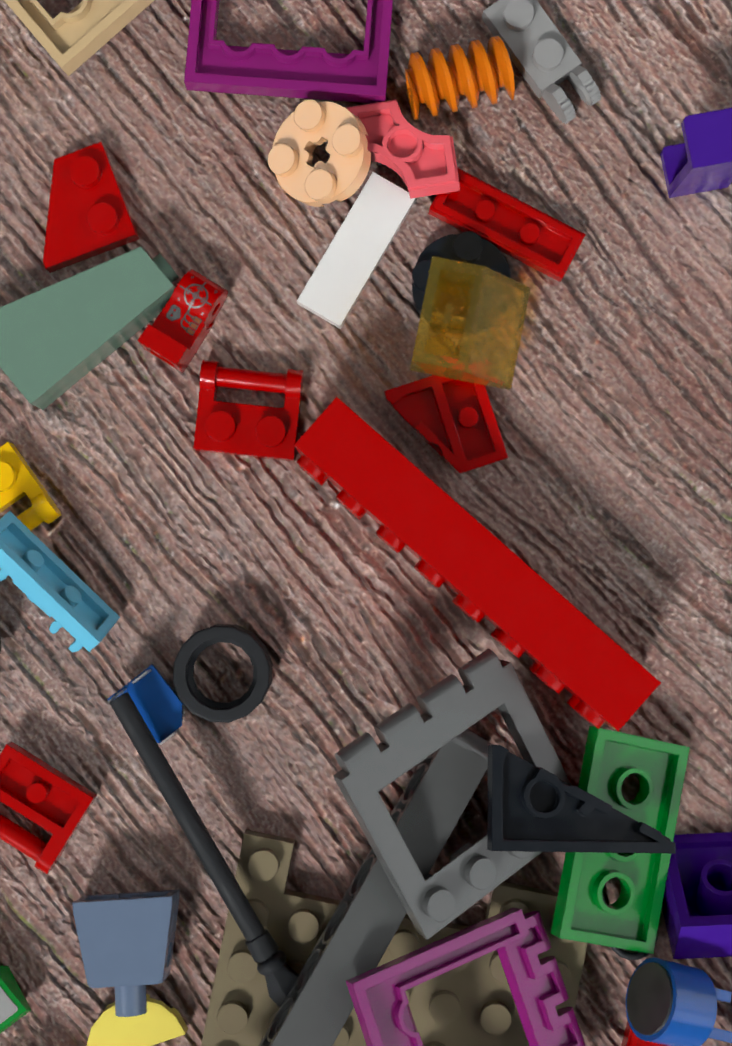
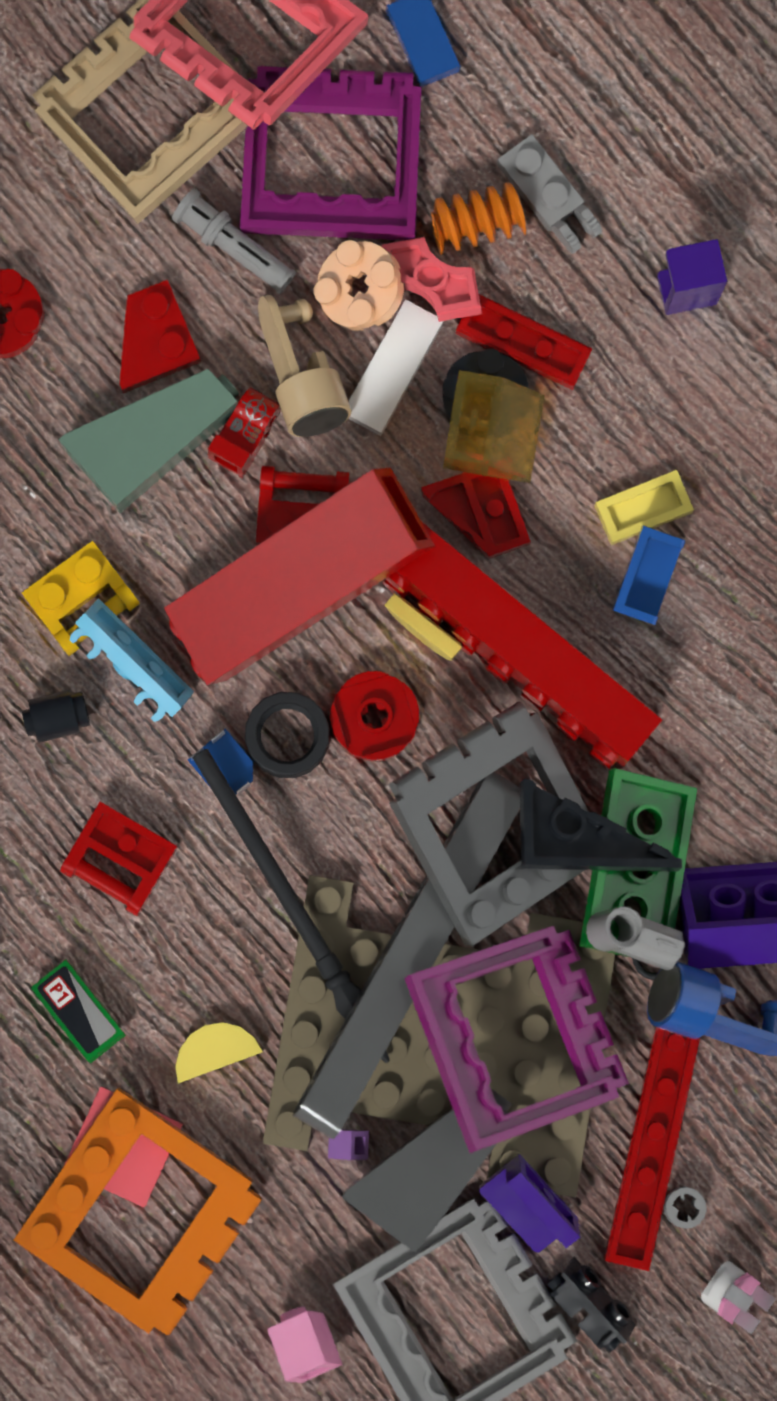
camera: 10 degrees left, 5 degrees down
(127, 943) = (211, 970): sand blue torso -> none
(159, 86) = (217, 230): none -> light grey pin
(240, 494) = (298, 576): none -> red brick
(258, 285) = (309, 400): none -> tan piece
(306, 677) = (388, 694): none -> red plate
(382, 554) = (423, 627): none -> light yellow tile
(618, 934) = (637, 937): none -> light grey piece
(637, 419) = (645, 504): none -> light yellow tile
(641, 500) = (648, 574): none -> blue panel

